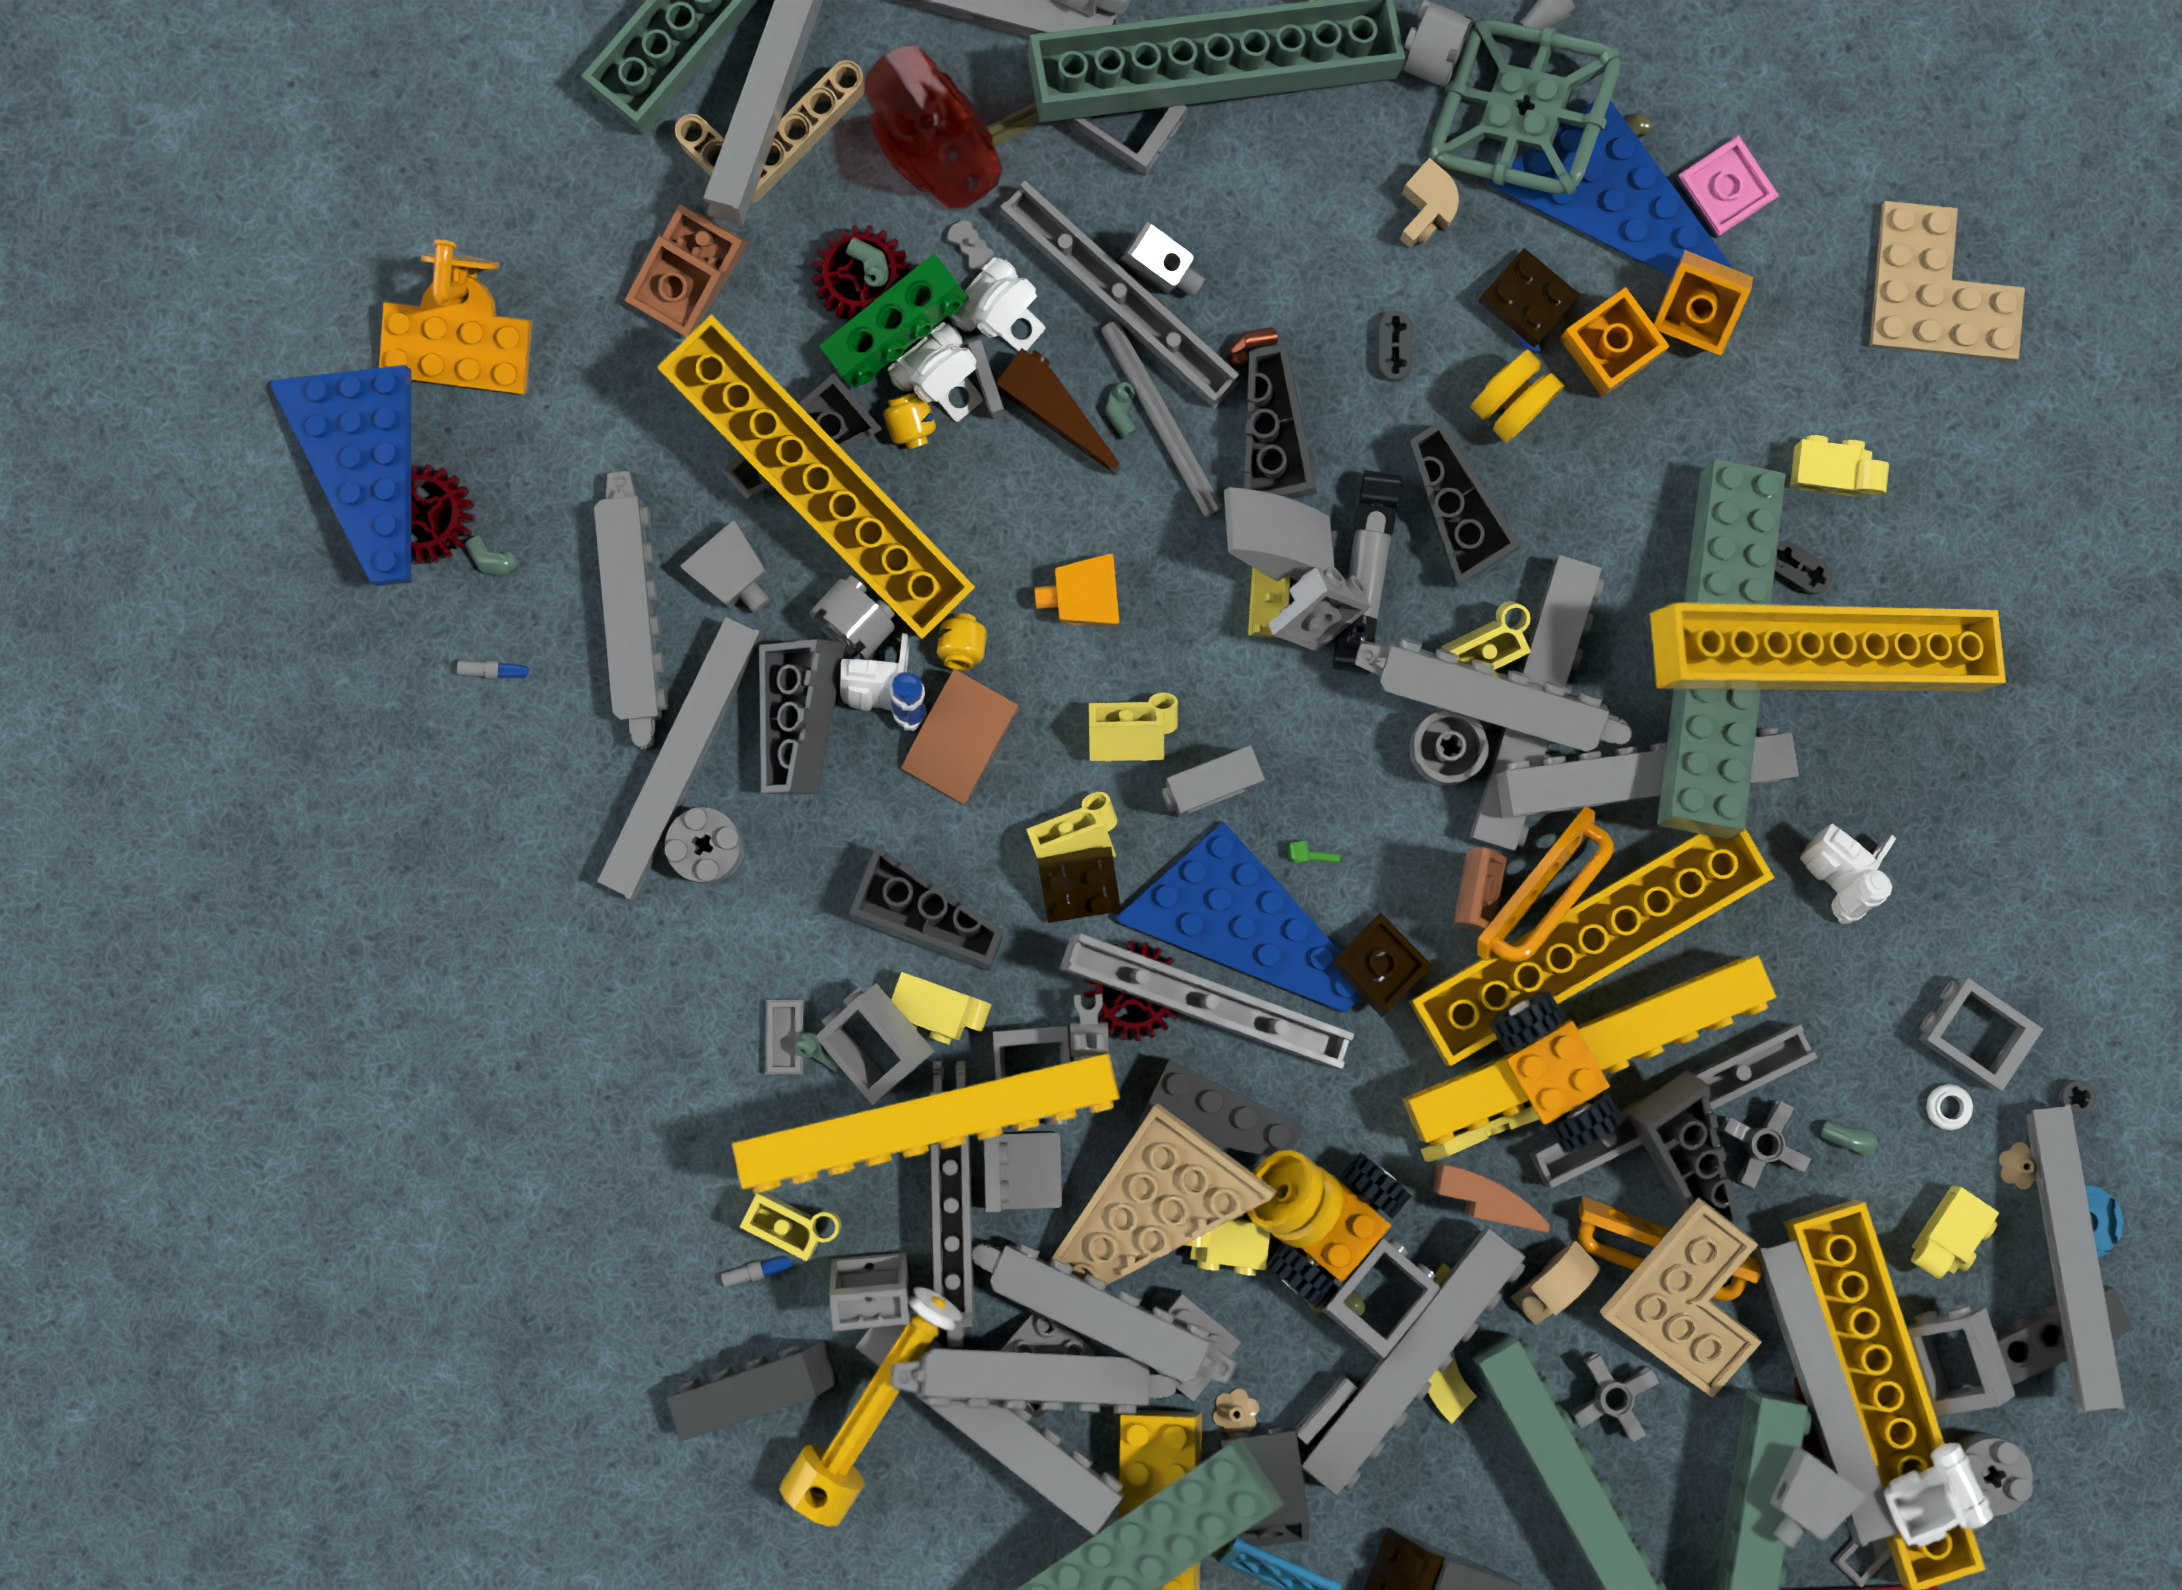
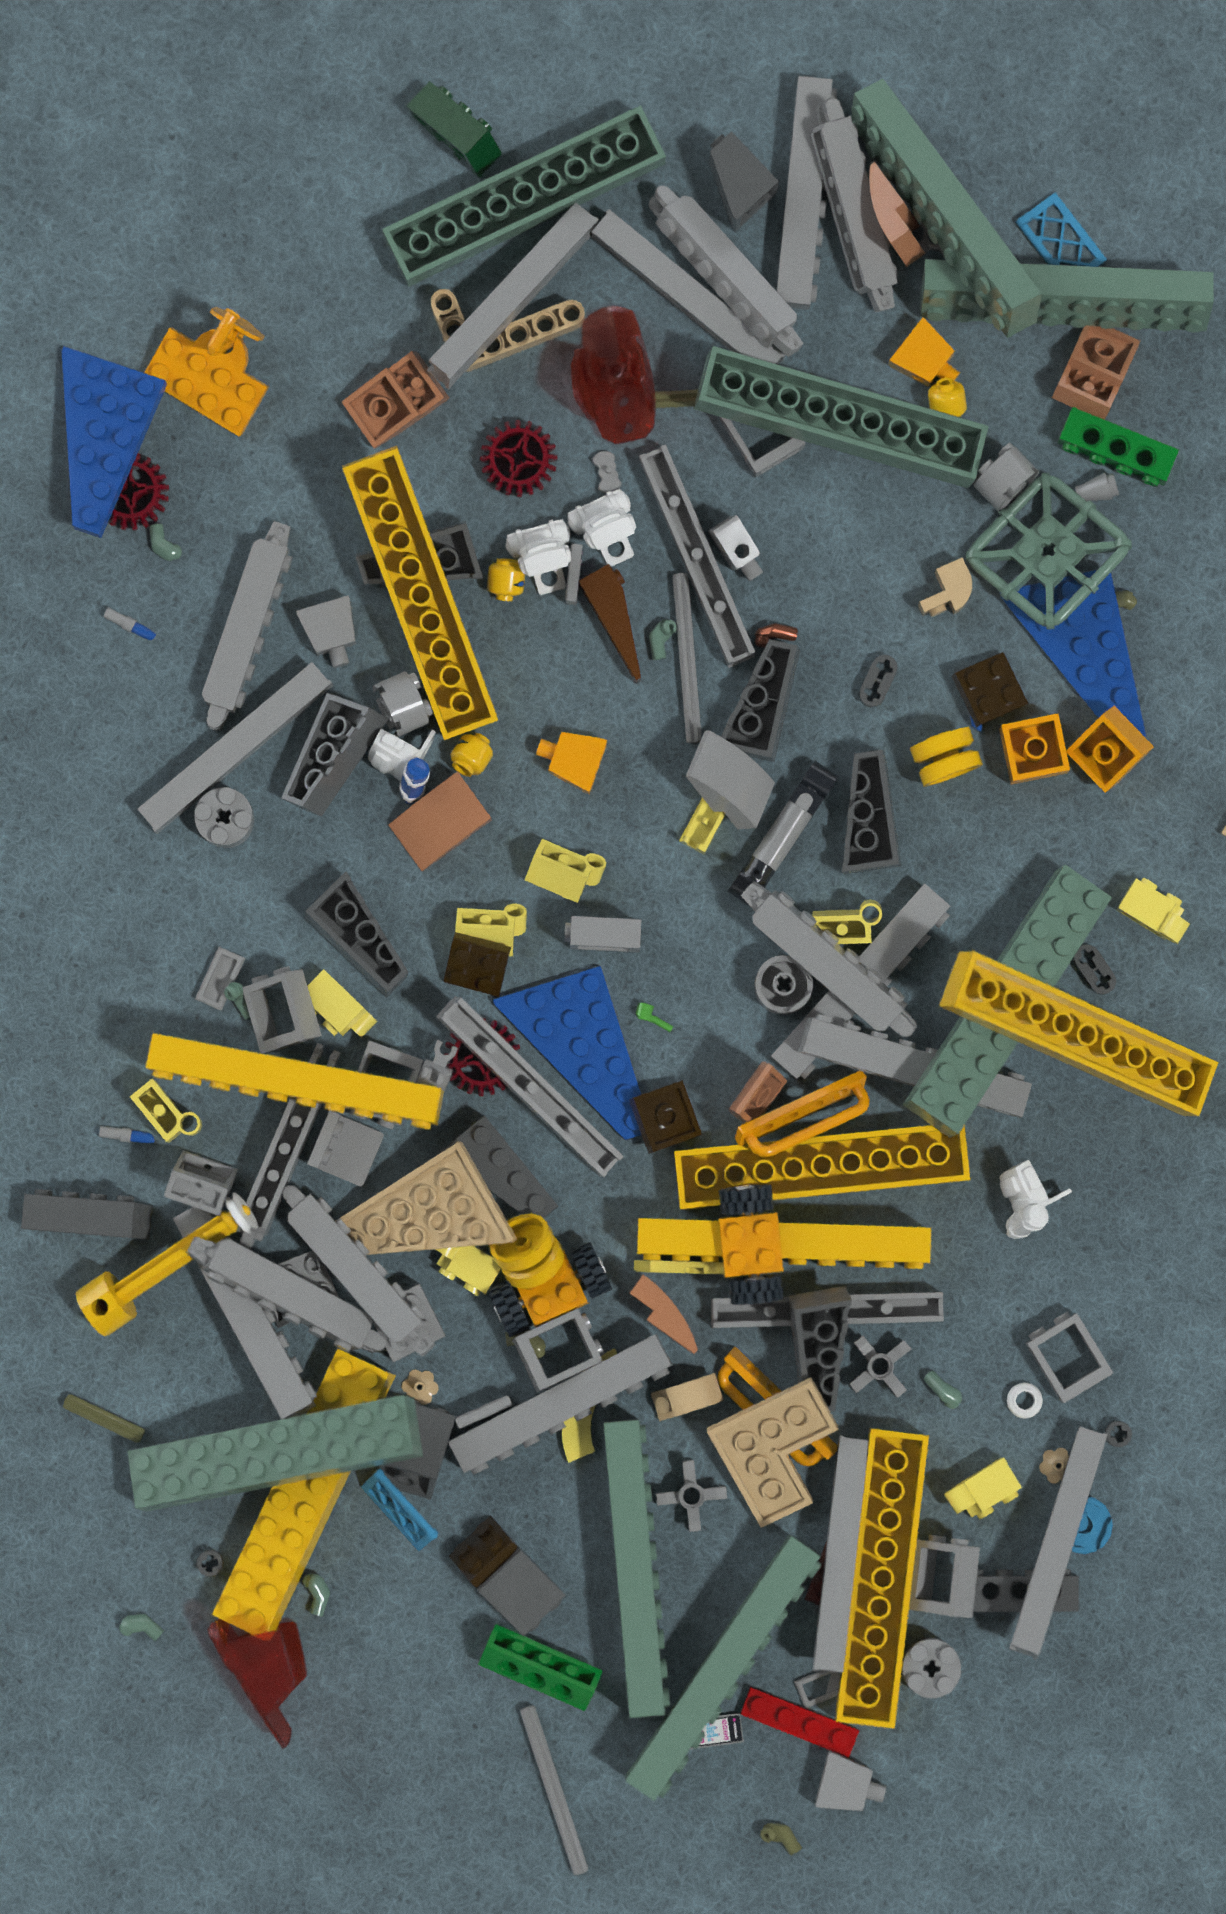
camera: 20 degrees right, 0 degrees up
(873, 261) = (530, 456): sand green arm -> none
(876, 320) = (512, 499): green brick -> none
(1321, 608) = (735, 845): light grey plate -> none
(1727, 186) = (1170, 672): bright pink tile -> none
(1812, 1499) = (792, 1619): light grey torso -> none
(1938, 1498) = (881, 1661): white piece -> none

